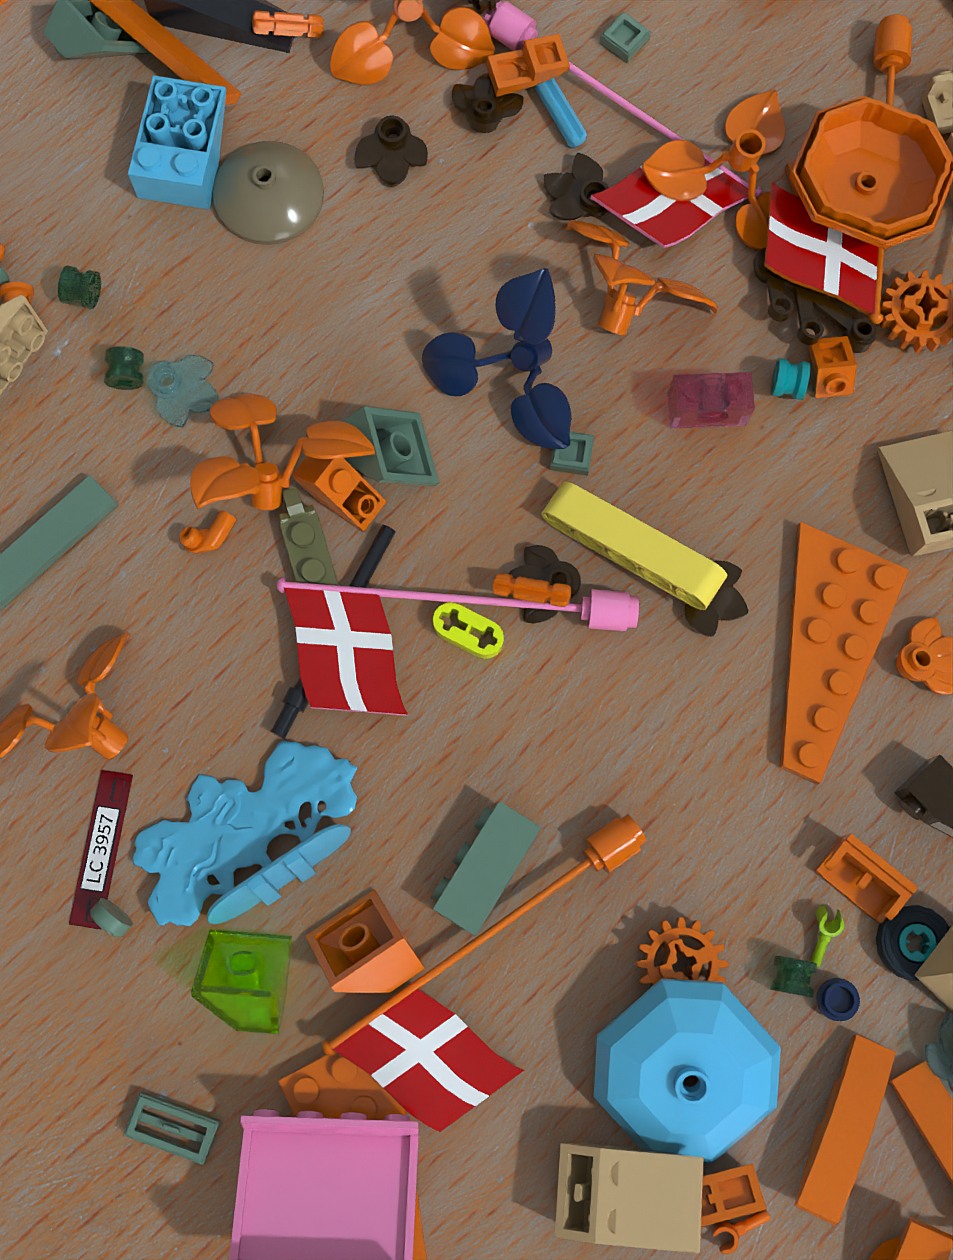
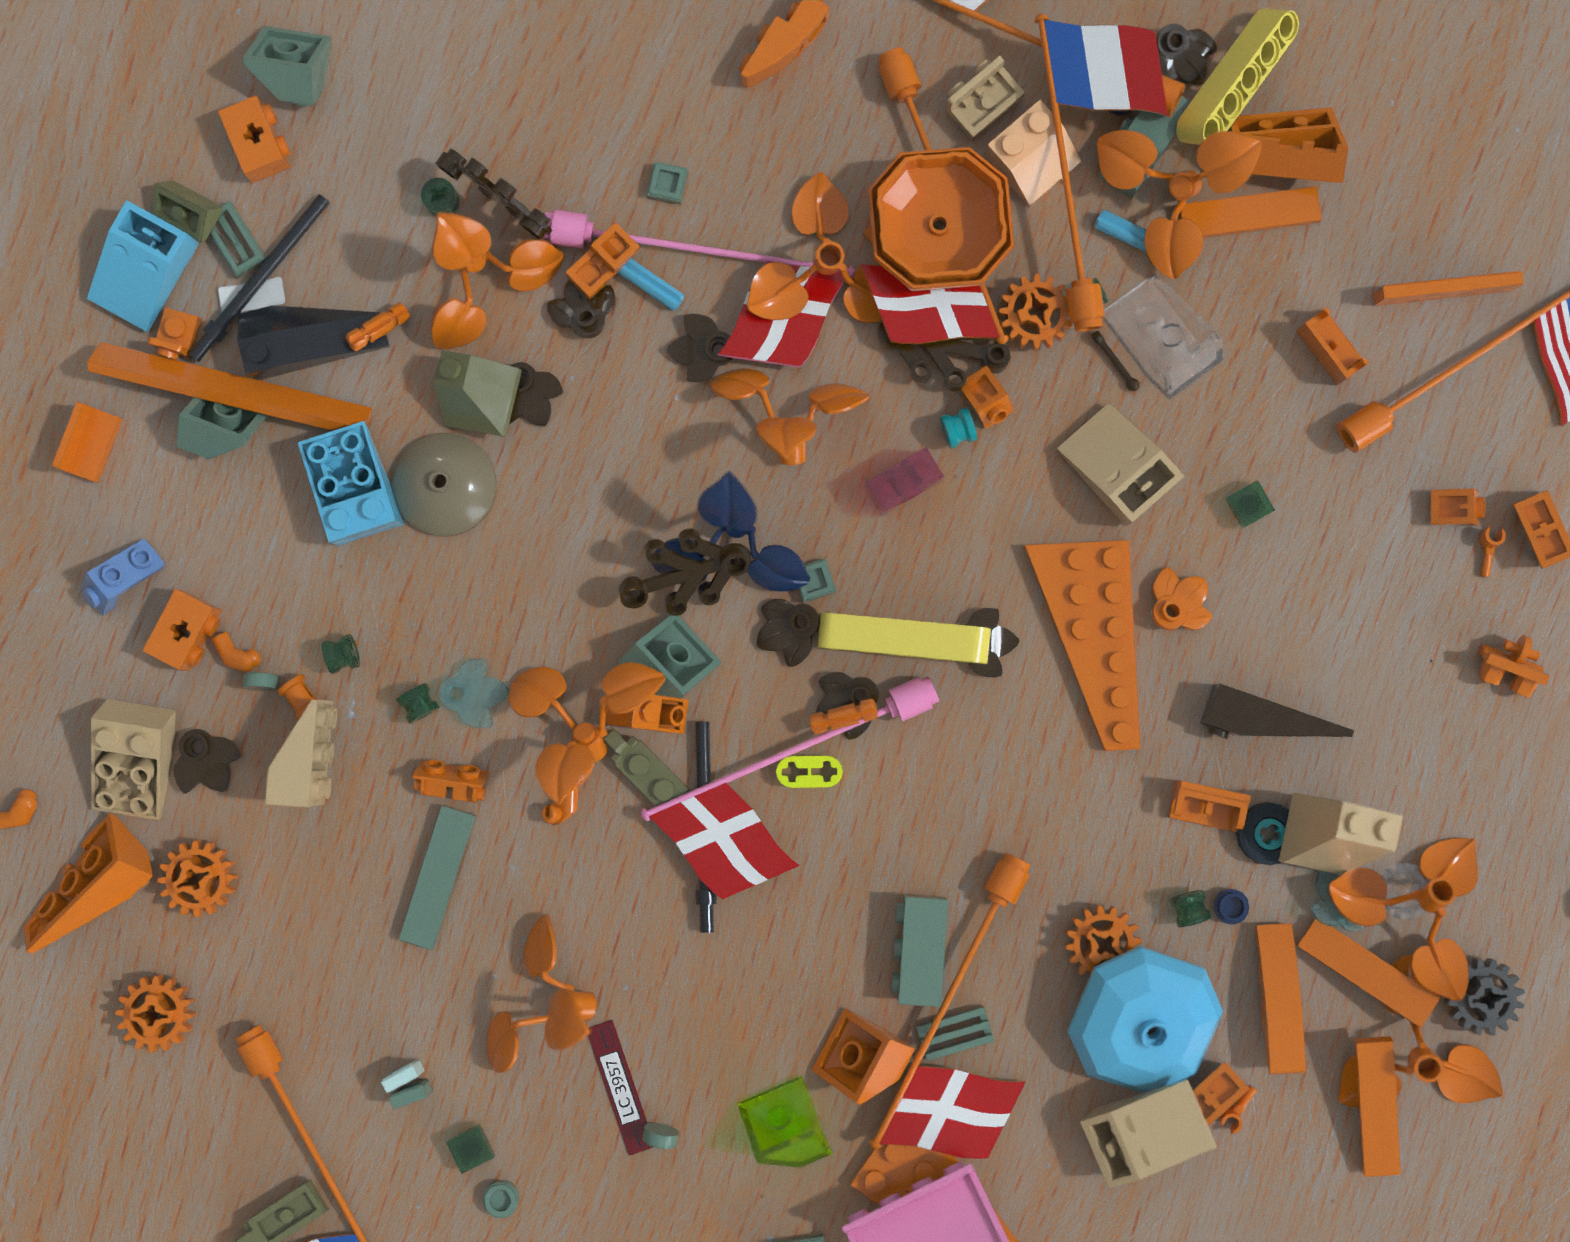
camera: 20 degrees left, 10 degrees up
(126, 462) = (435, 776): none -> orange hinge
(233, 831) = (715, 1023): medium azure plant -> none
(343, 117) = (476, 393): none -> olive slope
(455, 372) = (687, 571): none -> dark brown plant
(510, 985) = (962, 1045): none -> sand green tile
(516, 485) = (783, 632): none -> dark brown plate
(827, 930) = (1198, 858): lime hand -> none

